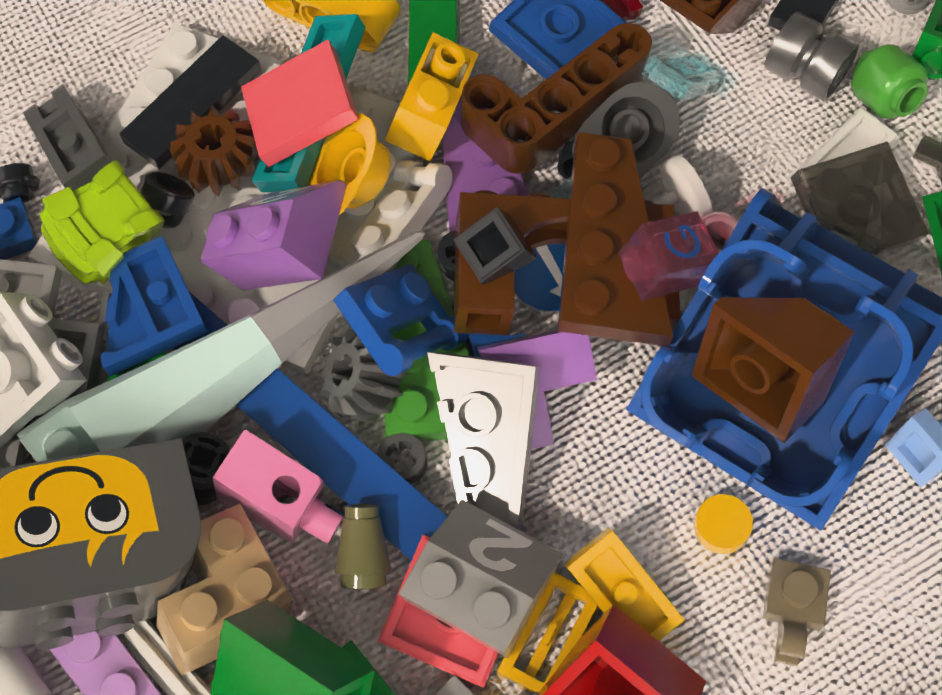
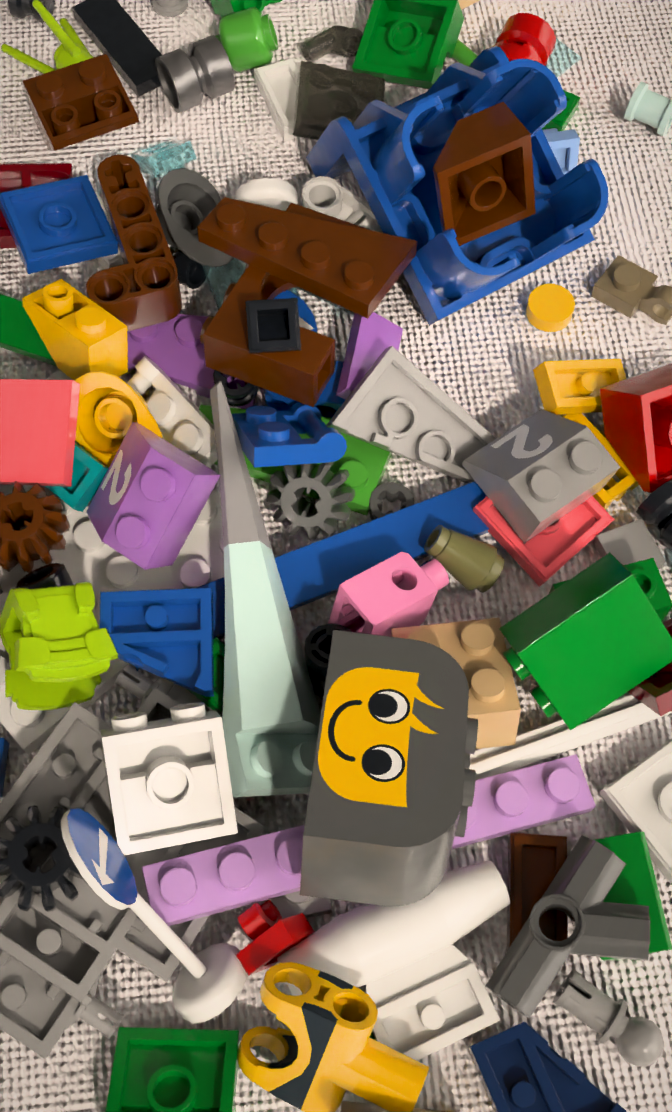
camera: 70 degrees left, 0 degrees up
(668, 255) = (356, 205): clear pink brick -> none

